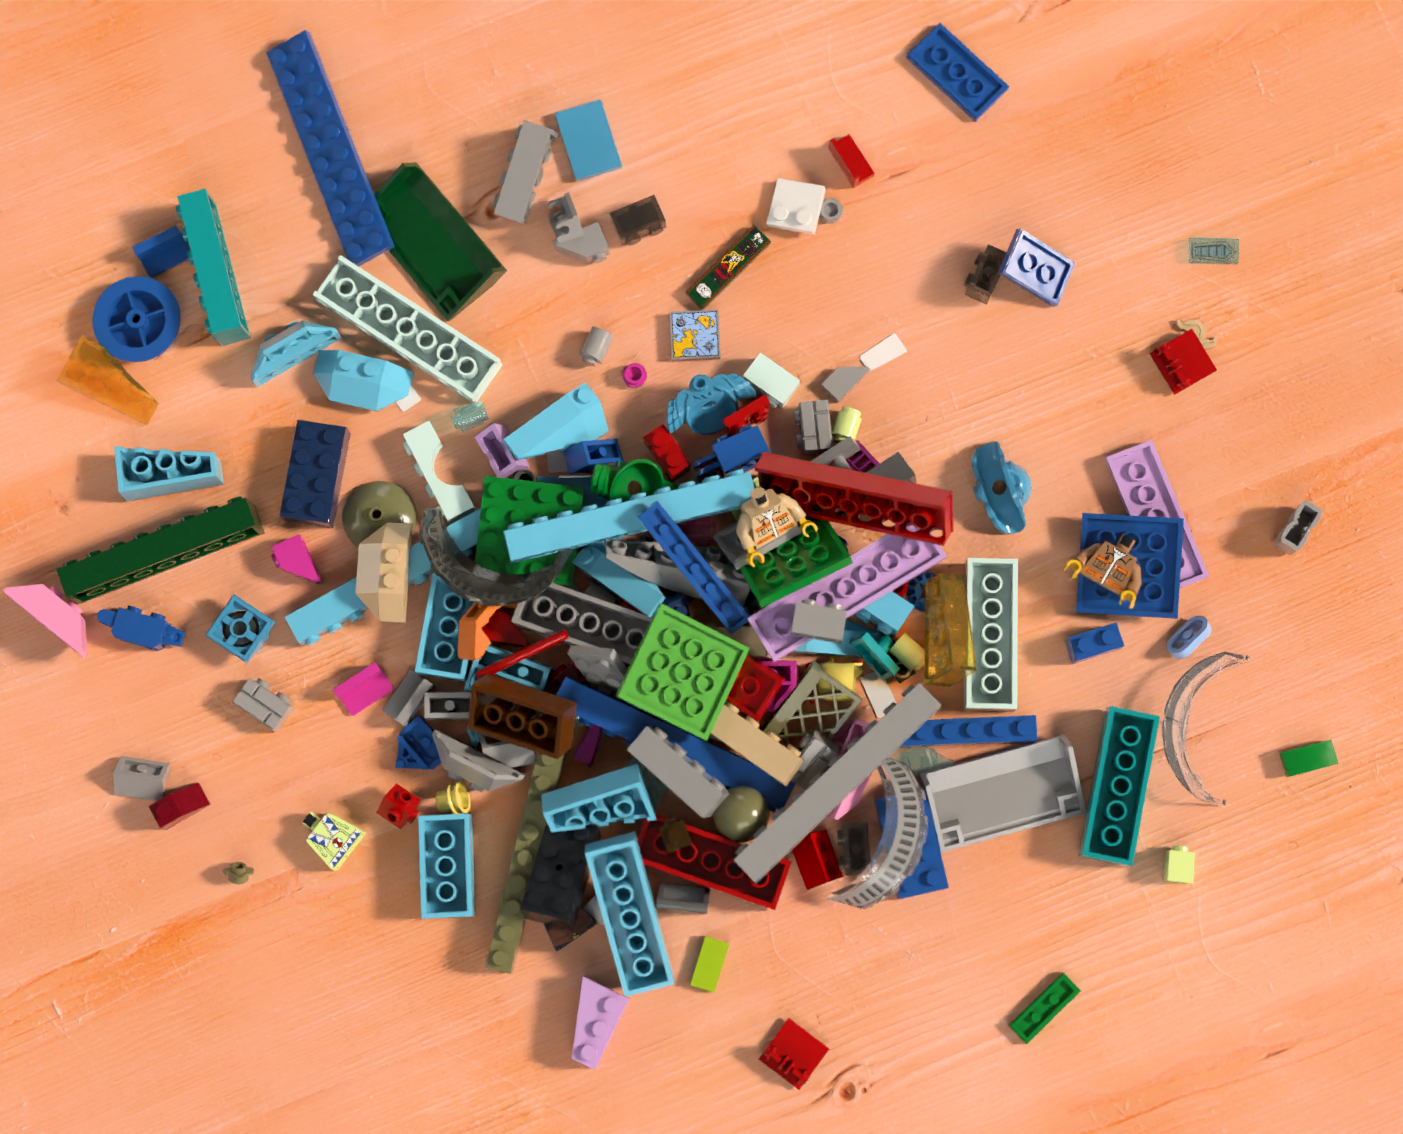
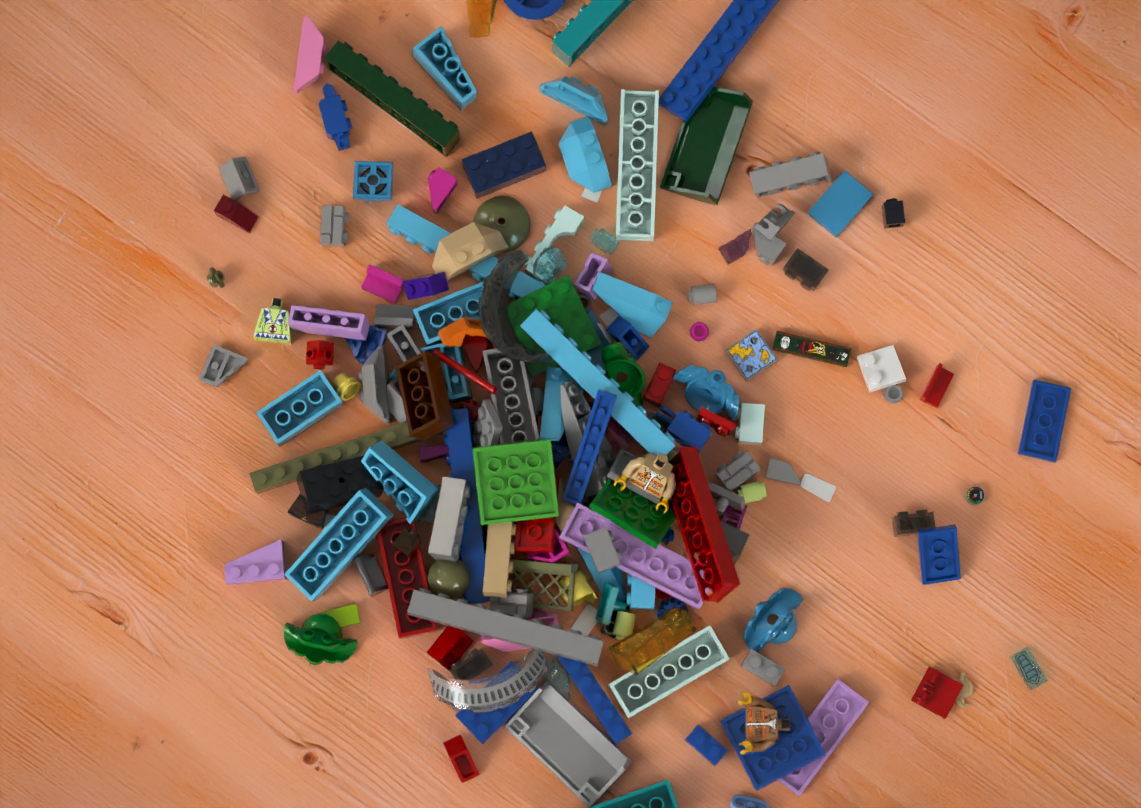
camera: 50 degrees right, 0 degrees up
(342, 927) = (220, 366): none -> light grey wing
(370, 775) = (328, 322): none -> lavender brick
(397, 640) = (426, 285): none -> dark purple brick
(460, 490) = (549, 264): none -> clear light blue plate
(567, 279) = (736, 248): none -> slope
(635, 90) = (893, 213): none -> black brick
(721, 1002) = (319, 640): none -> green piece
(794, 1054) = (314, 708): red hinge -> none
(949, 921) = (461, 758): none -> red slope
(993, 192) = (975, 495): none -> tile
(1046, 530) = (762, 667): none -> light grey brick

